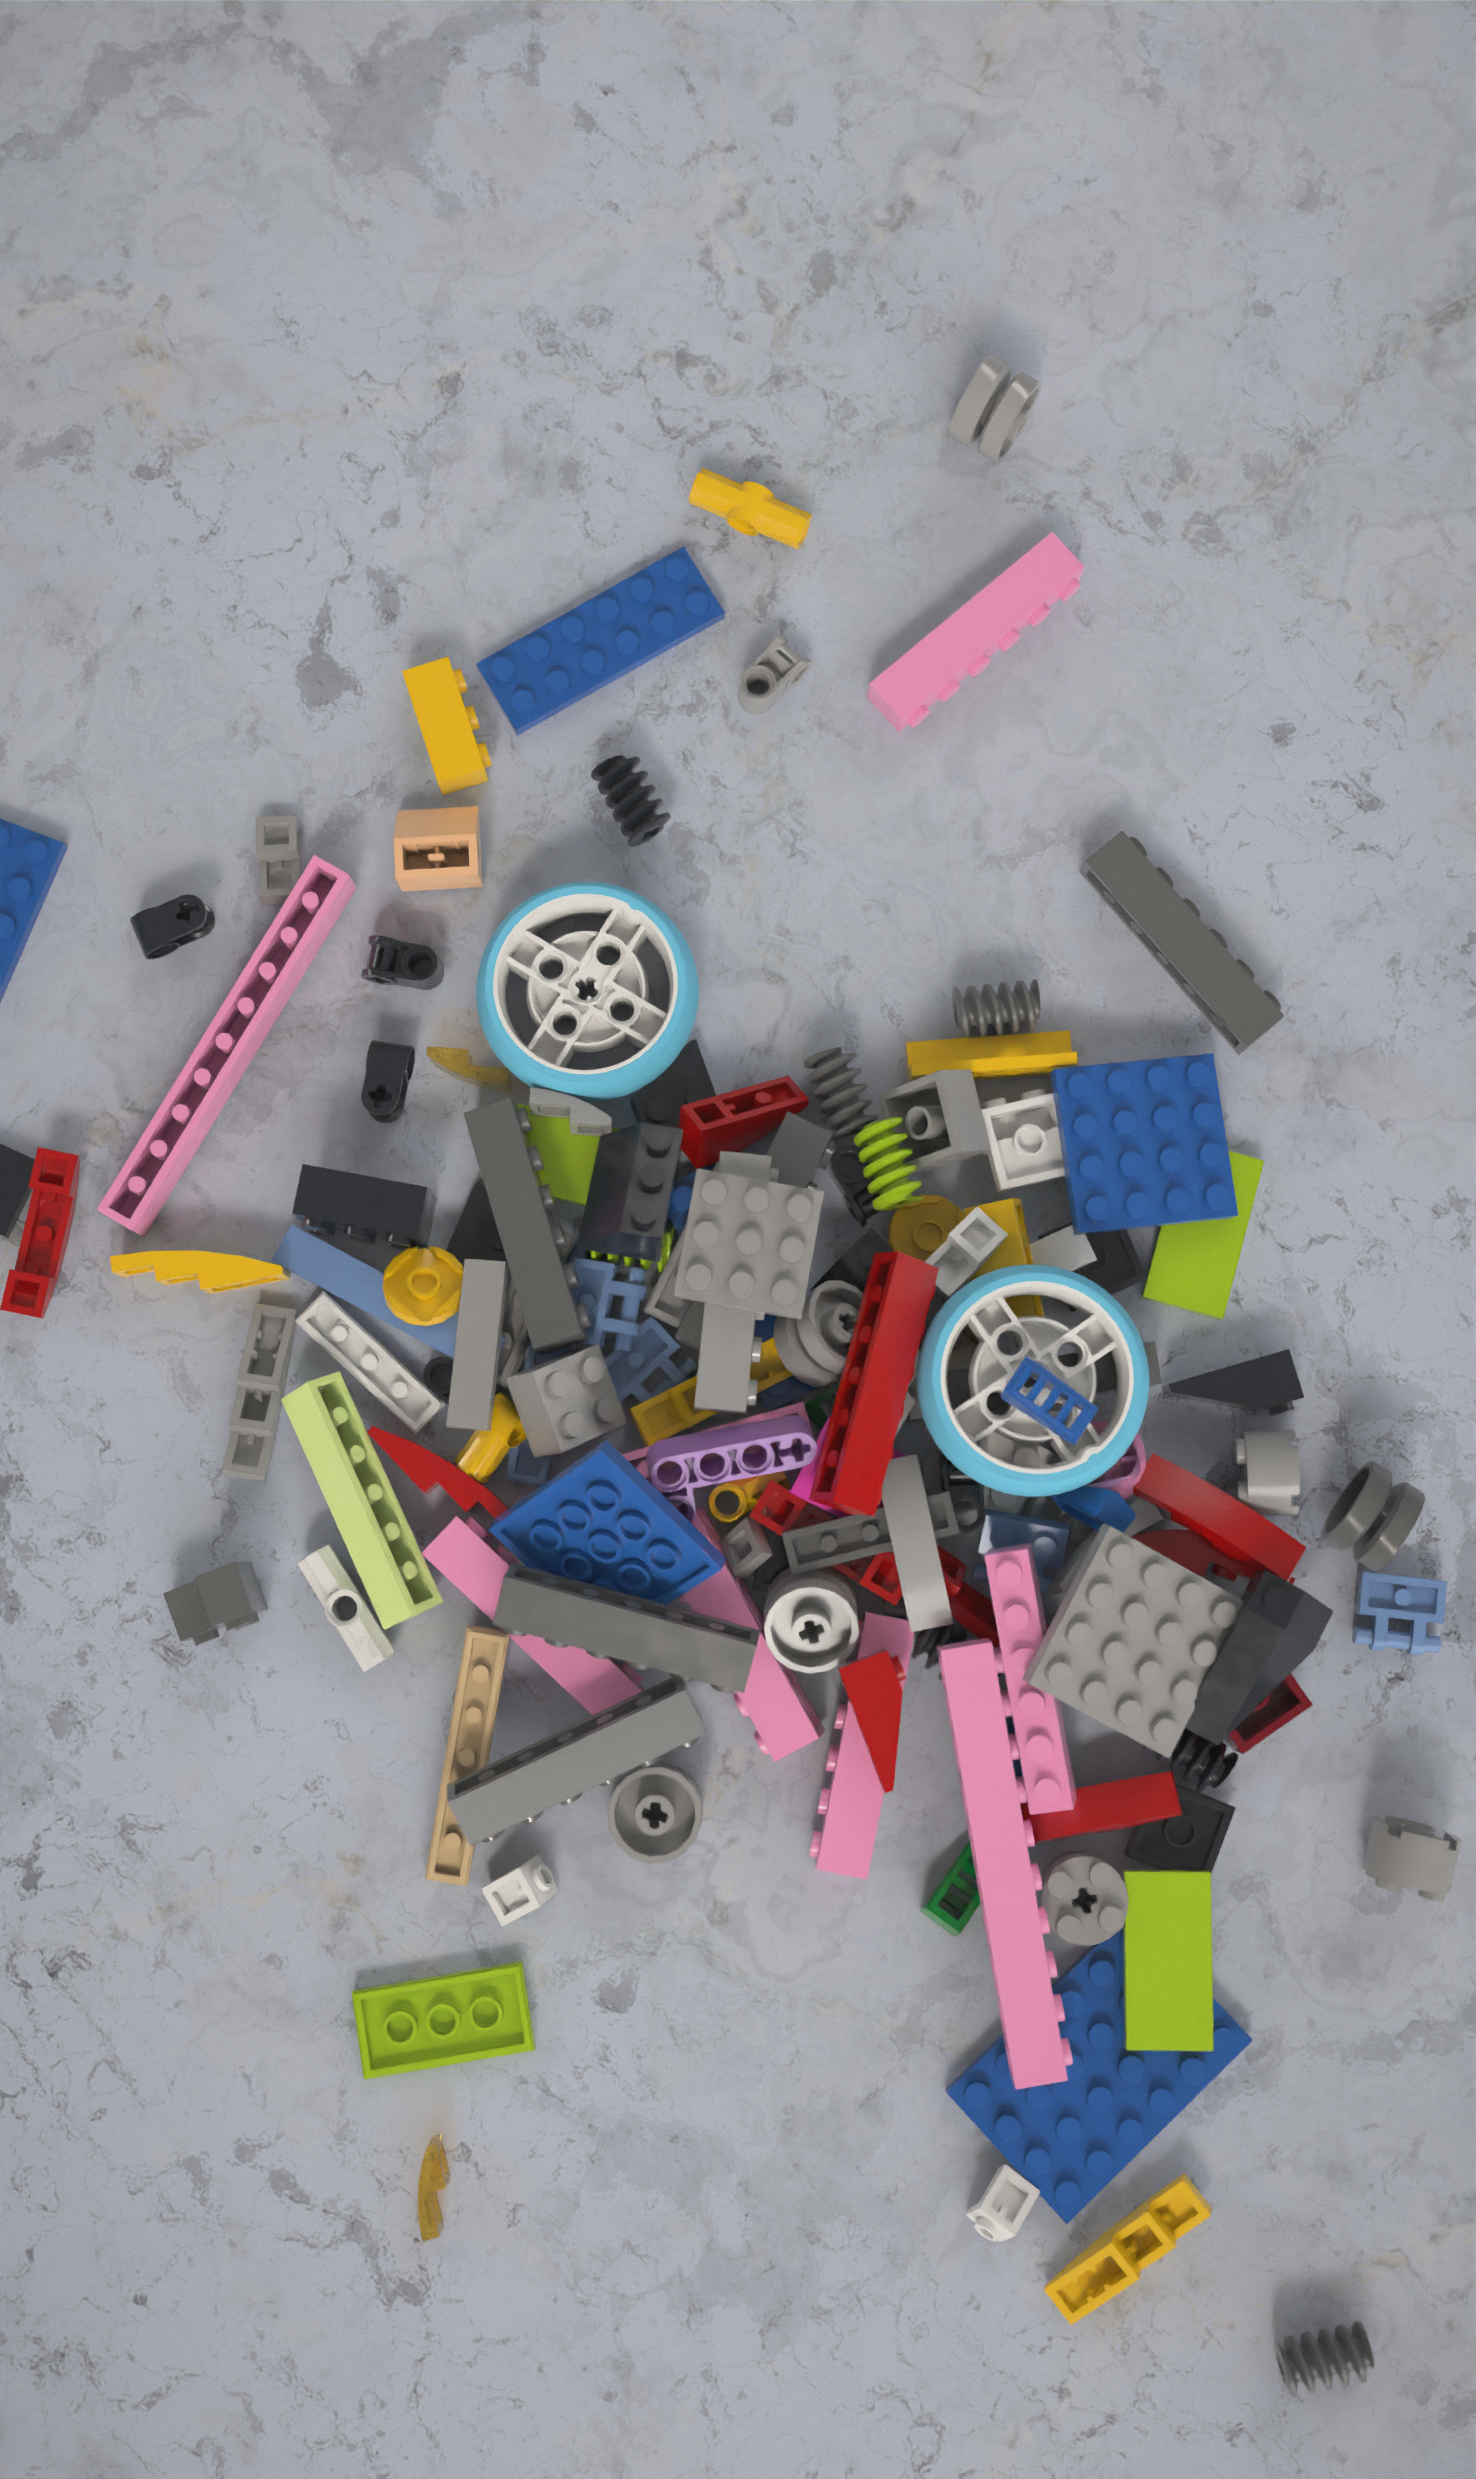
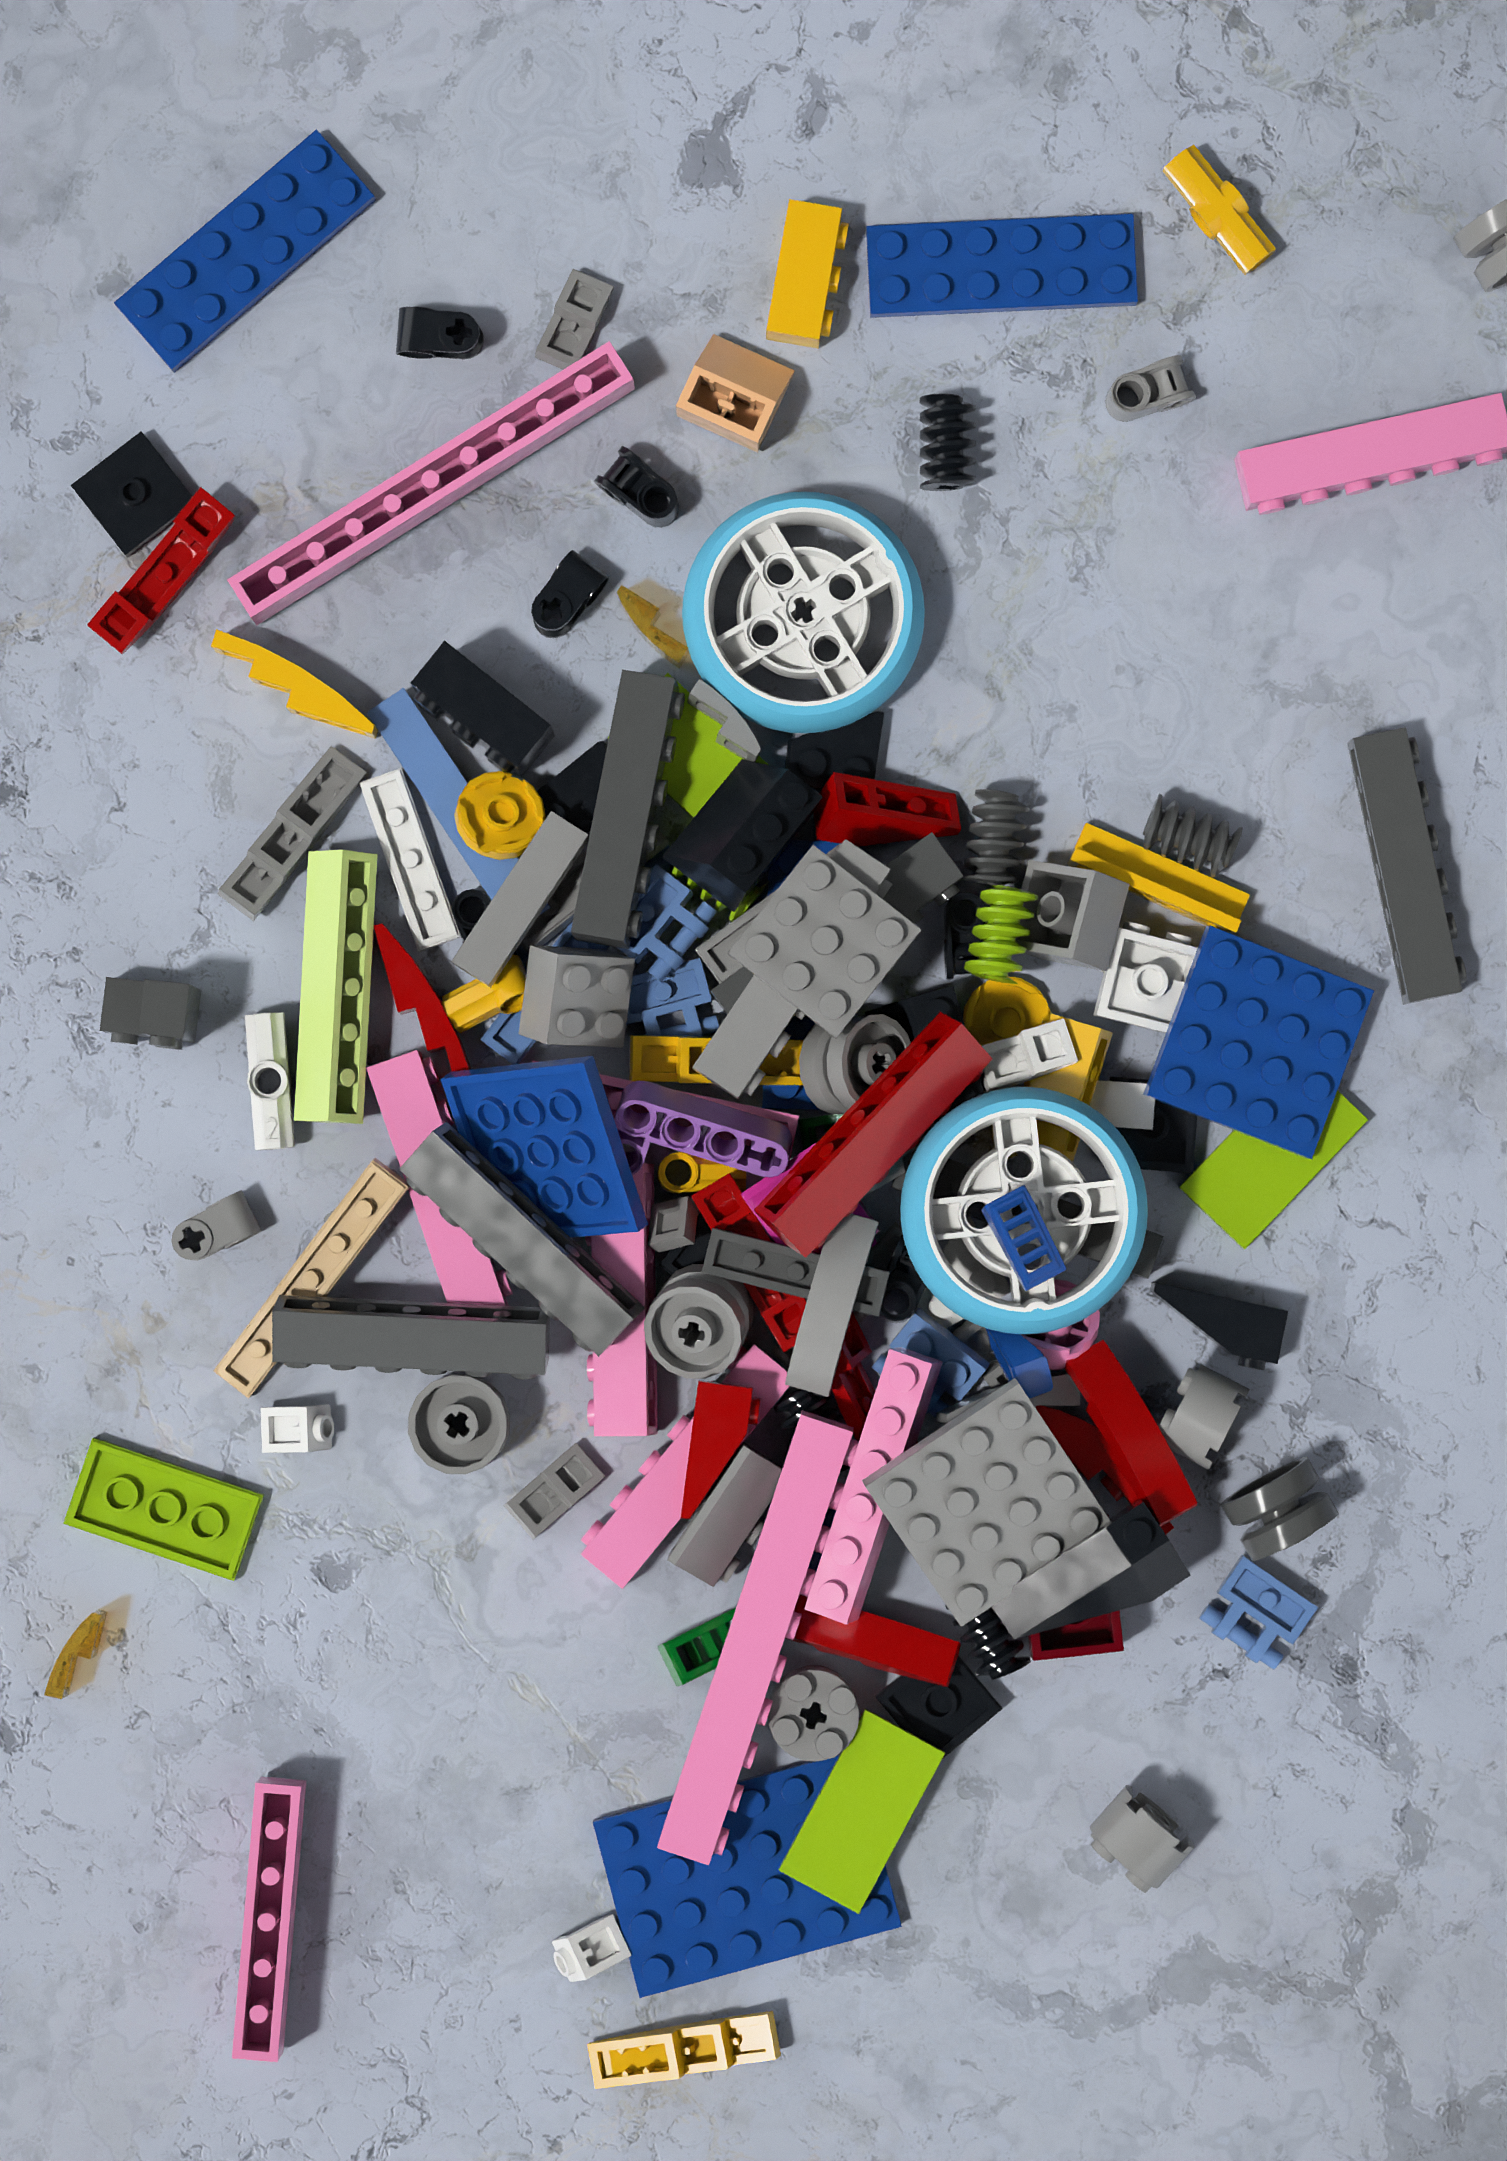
camera: 30 degrees right, 5 degrees up
(369, 1751) = (223, 1226): none -> light grey piece
(717, 2333) = (269, 1919): none -> bright pink brick
(764, 1825) = (554, 1491): none -> light grey slope
(922, 1771) = (728, 1517): none -> light grey slope

